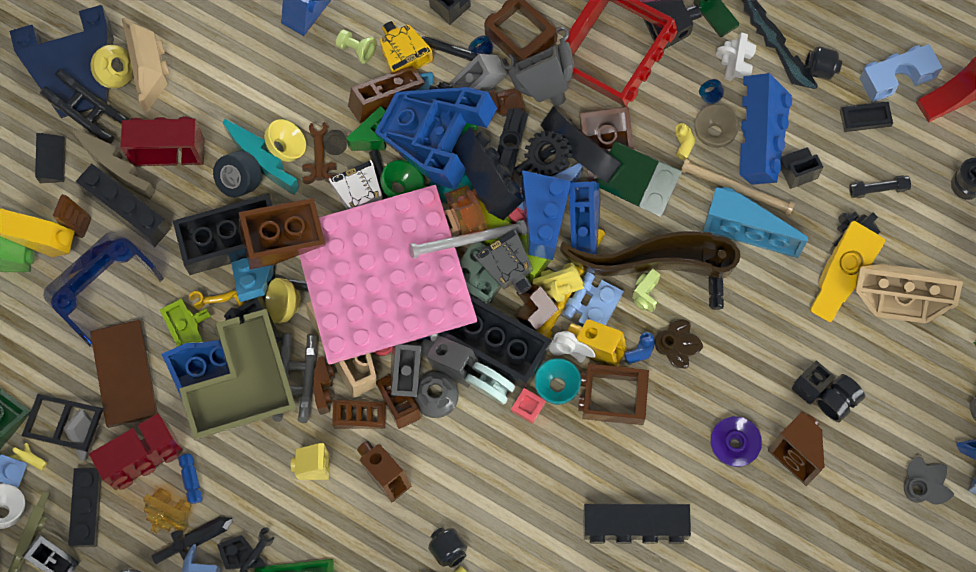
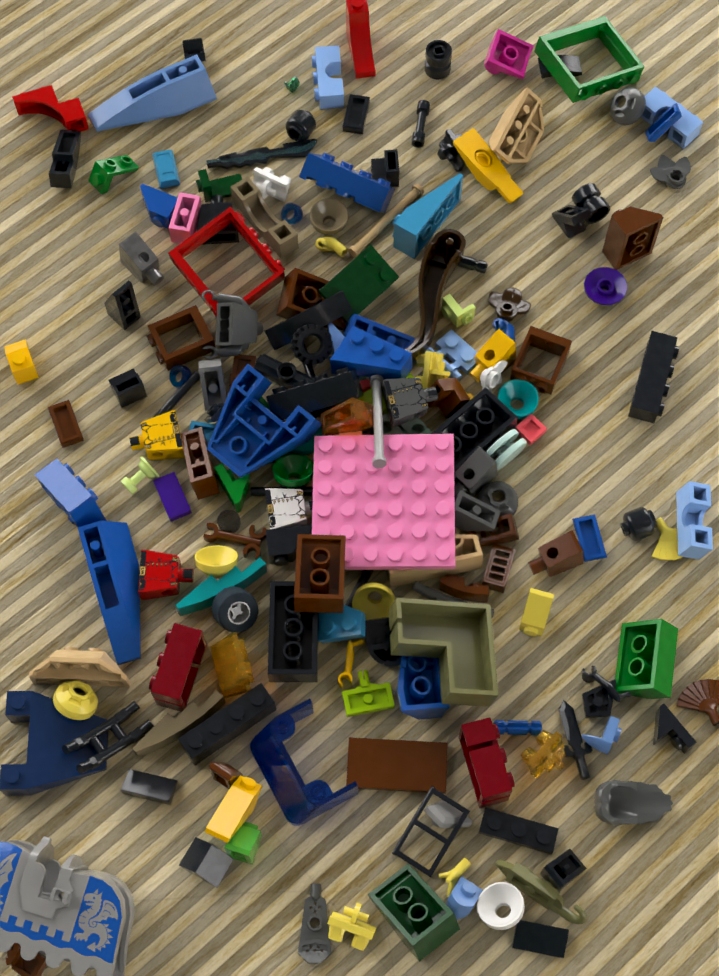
camera: 75 degrees left, 5 degrees down
(180, 191) = (232, 671): none -> clear yellow slope
(236, 60) = (116, 582): none -> blue wedge
(258, 97) = (161, 575): none -> red torso
(323, 195) = (283, 543): none -> black slope
(339, 86) = (172, 496): none -> dark purple tile
(419, 500) = (589, 538): none -> blue tile
(699, 51) = (277, 233): none -> dark tan arch
(878, 40) = (292, 84): none -> clear green rock

